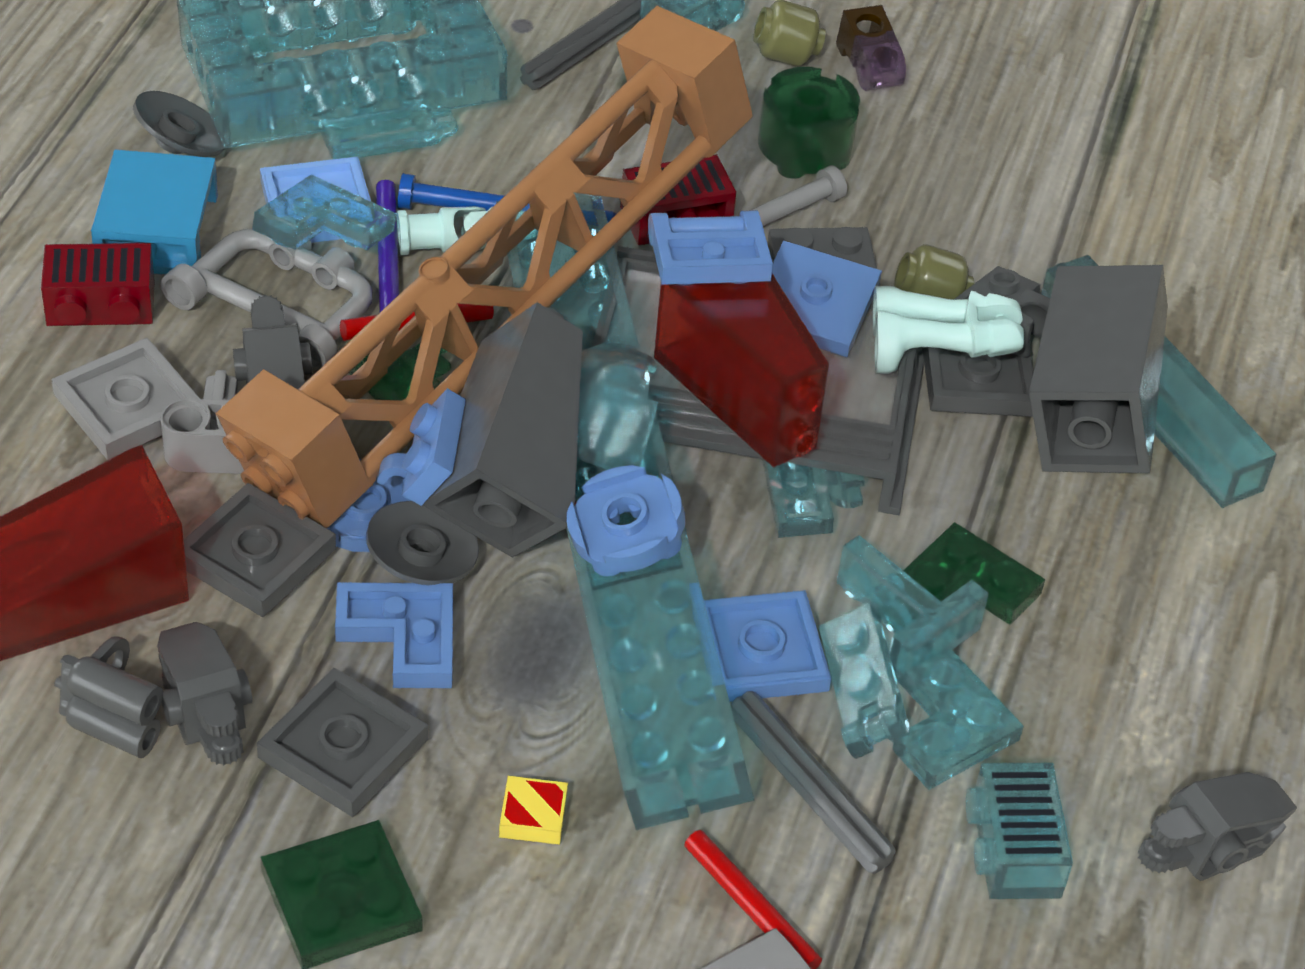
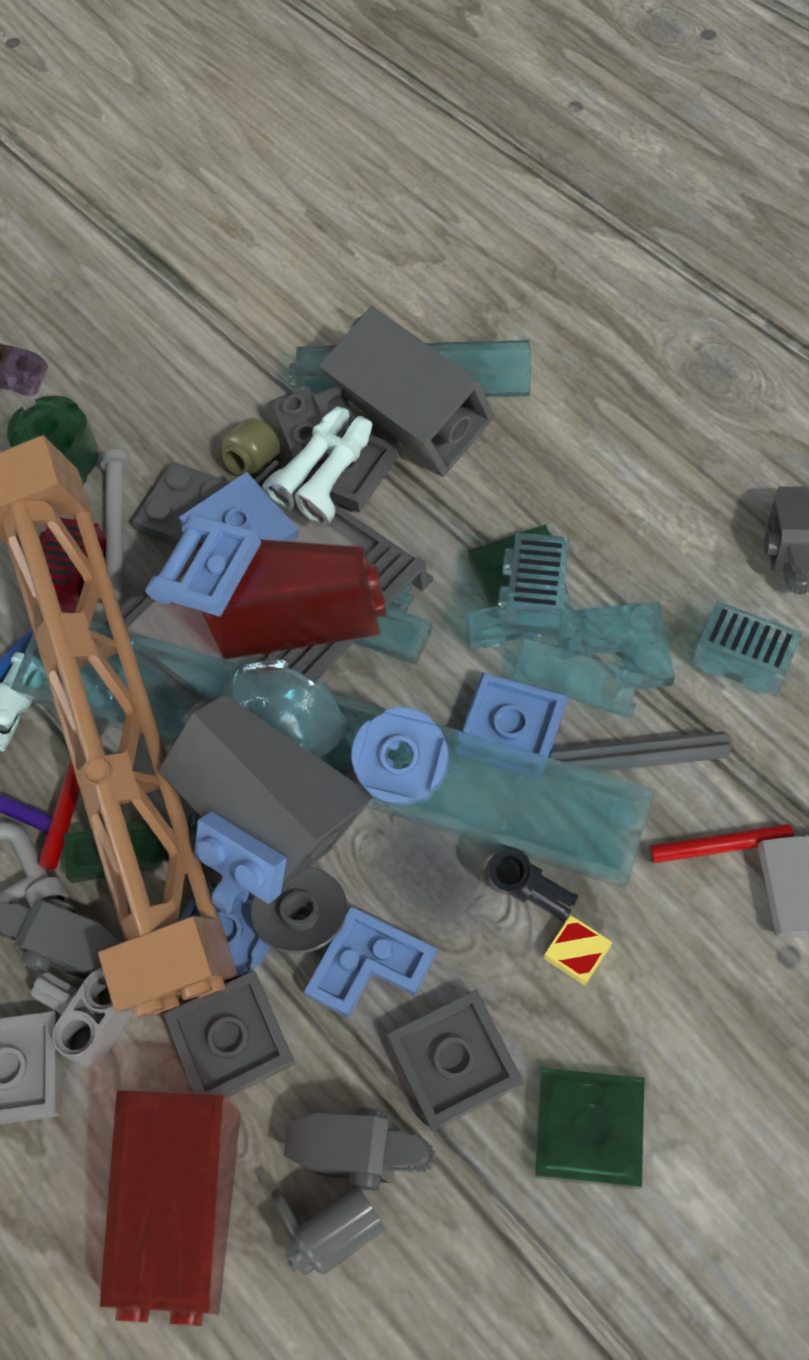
camera: 50 degrees left, 15 degrees up
(577, 726) = (531, 884): none -> black pin
(933, 570) = (535, 584): none -> clear light blue brick

